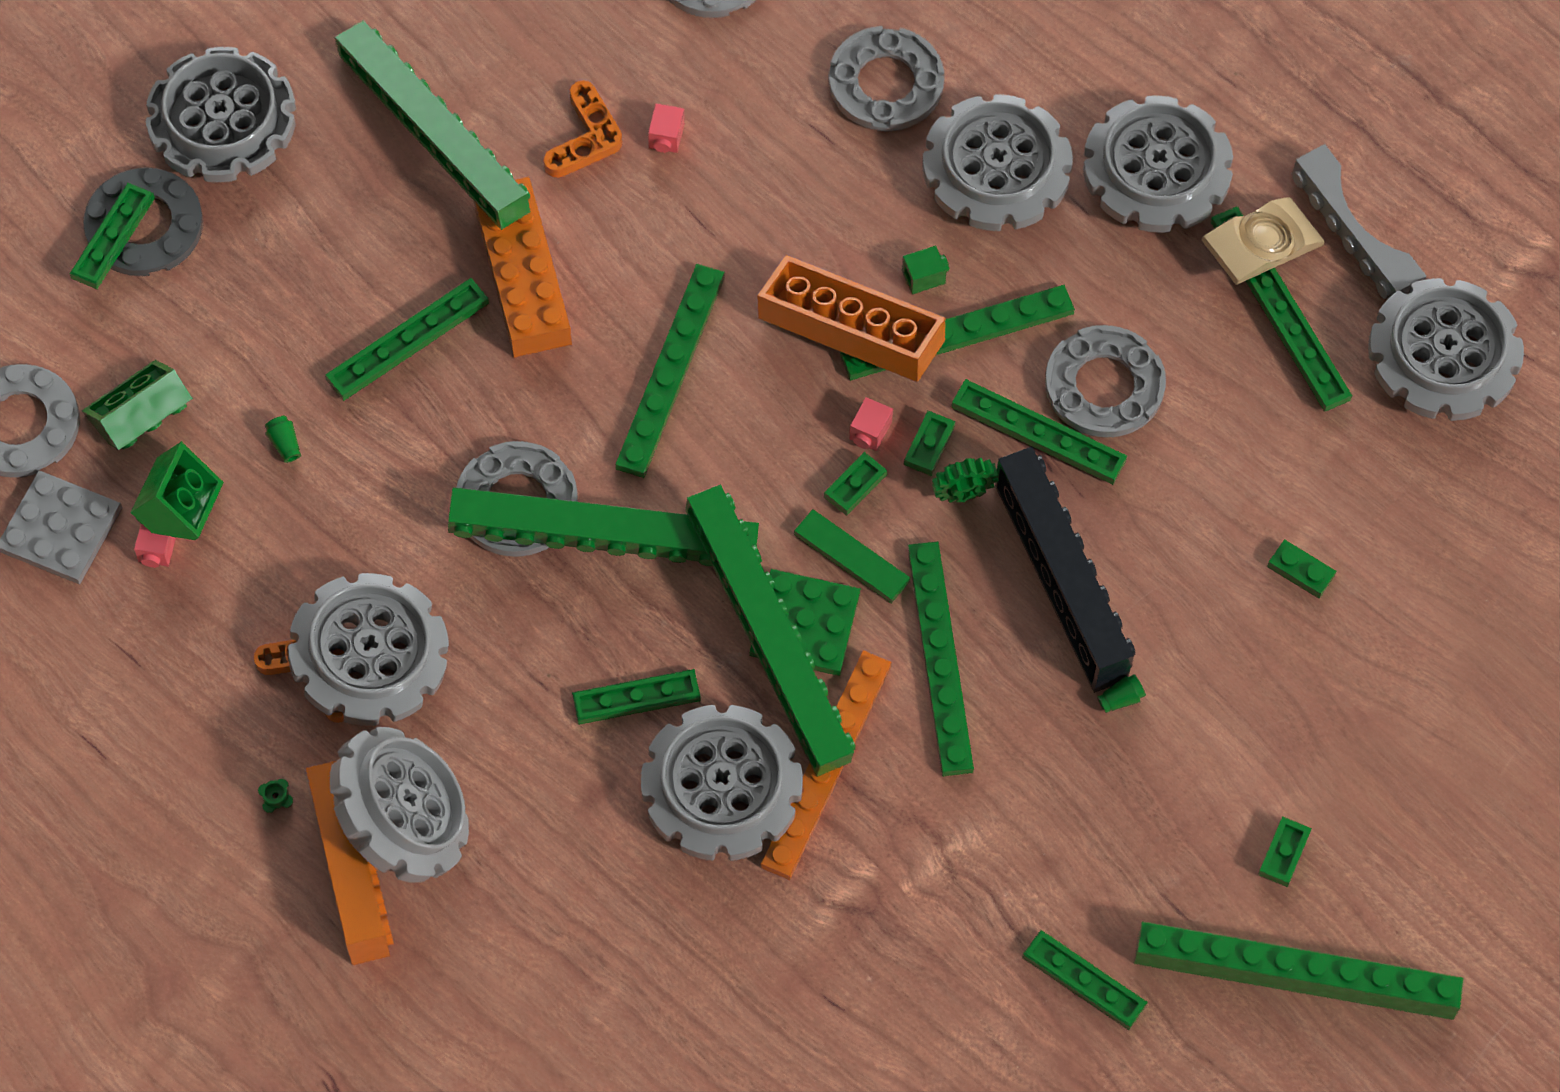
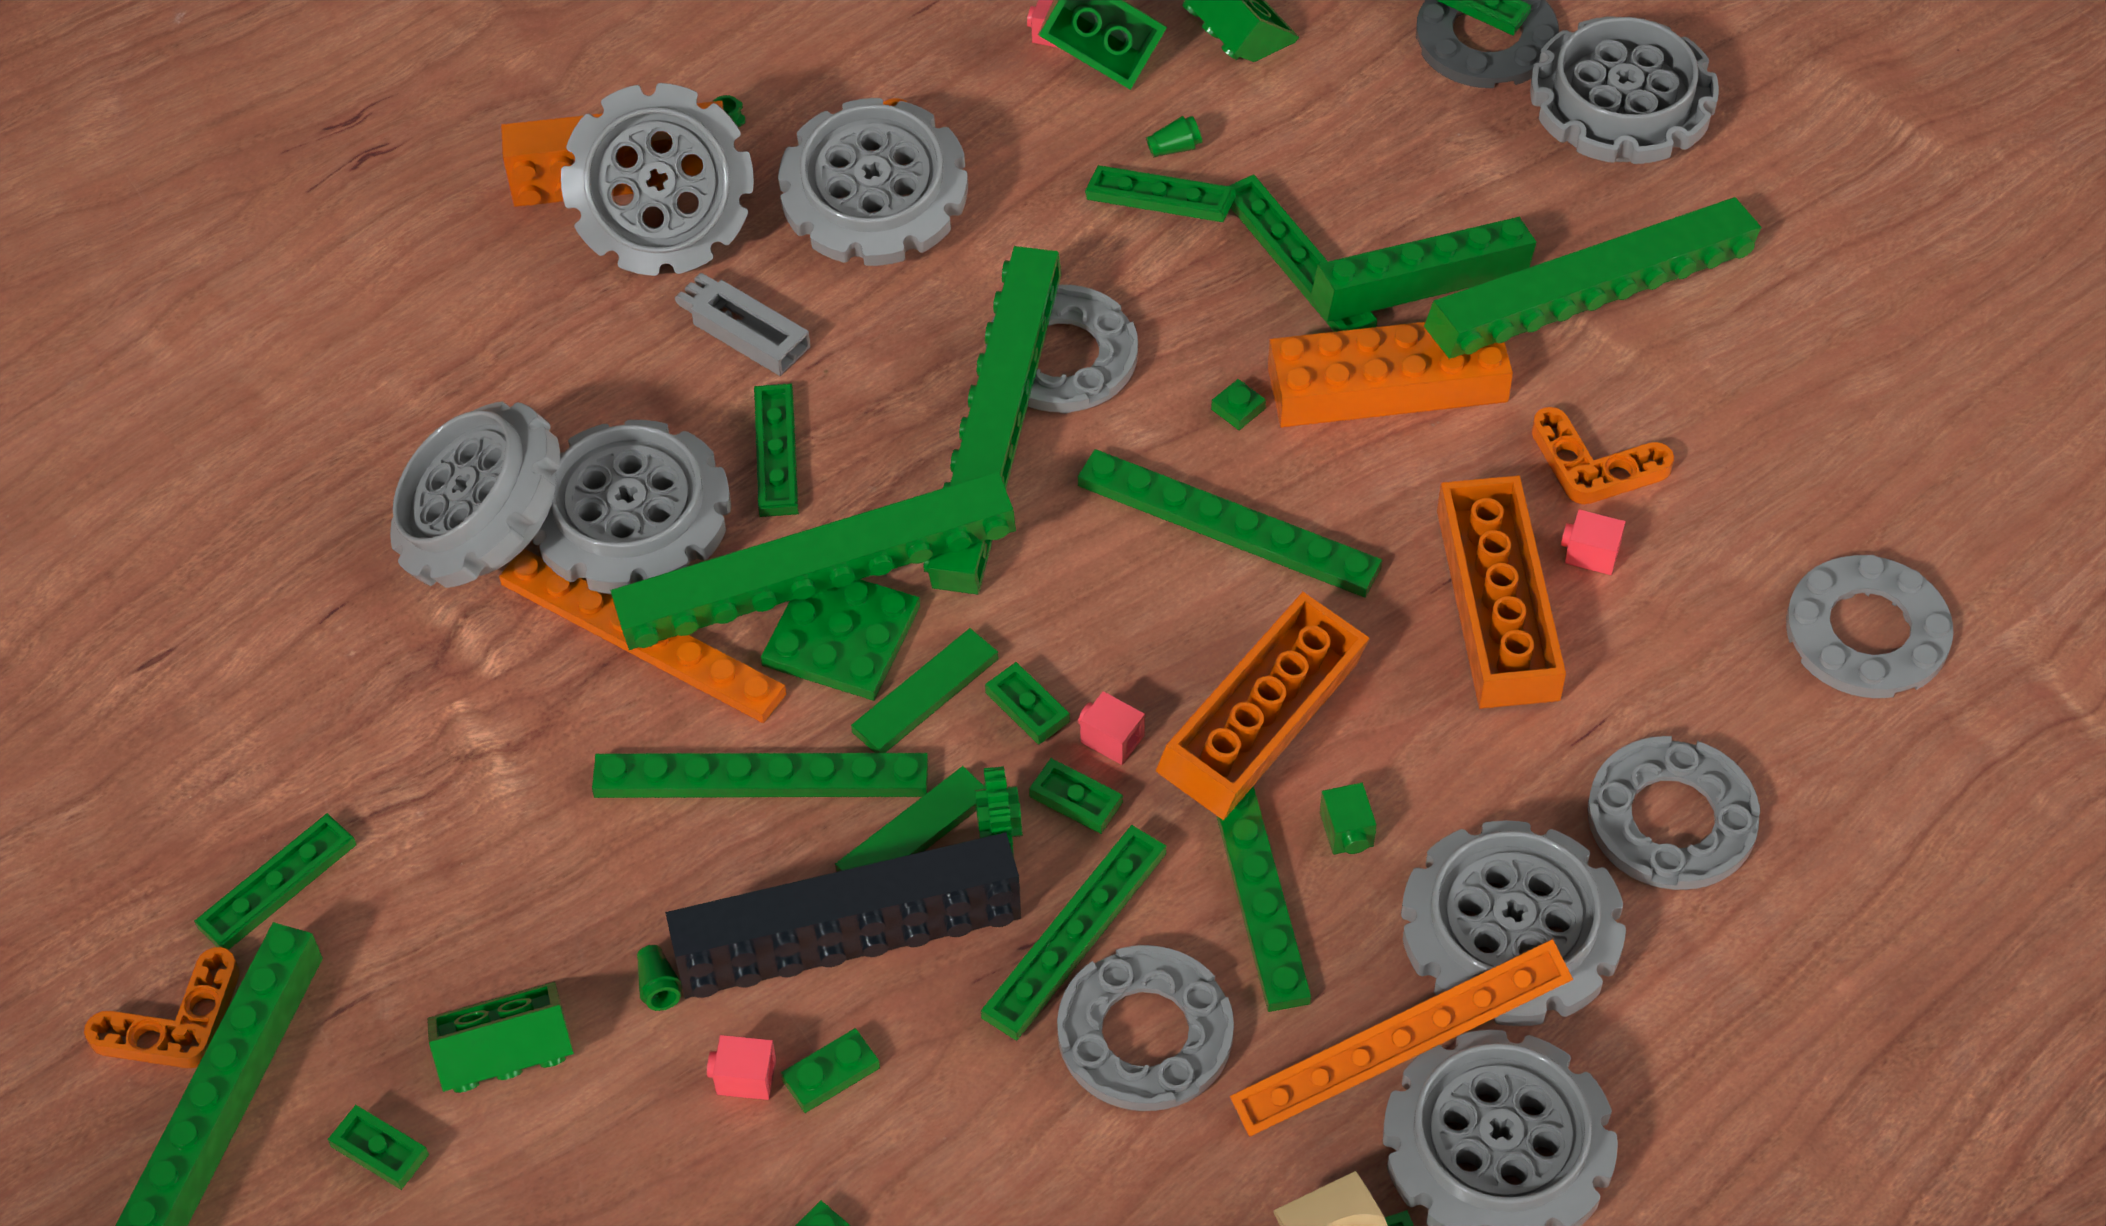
camera: 100 degrees right, 10 degrees down
(348, 442) = (1160, 193): none -> green tile
(426, 243) = (1421, 268): none -> green brick
(516, 732) = (759, 335): none -> light grey hinge
(556, 371) = (1238, 404): none -> green plate
(697, 913) = (474, 494): none -> light grey piece
(723, 182) = (1500, 592): none -> orange brick
(972, 547) = (920, 823): none -> green tile
(1104, 217) = (1401, 1037): none -> orange plate
(1169, 574) = (830, 1070): none -> green plate
(1182, 624) = (742, 1067): none -> coral brick
(1186, 788) = (499, 1038): none -> green slope
(1213, 1011) = (183, 1028): none -> orange beam

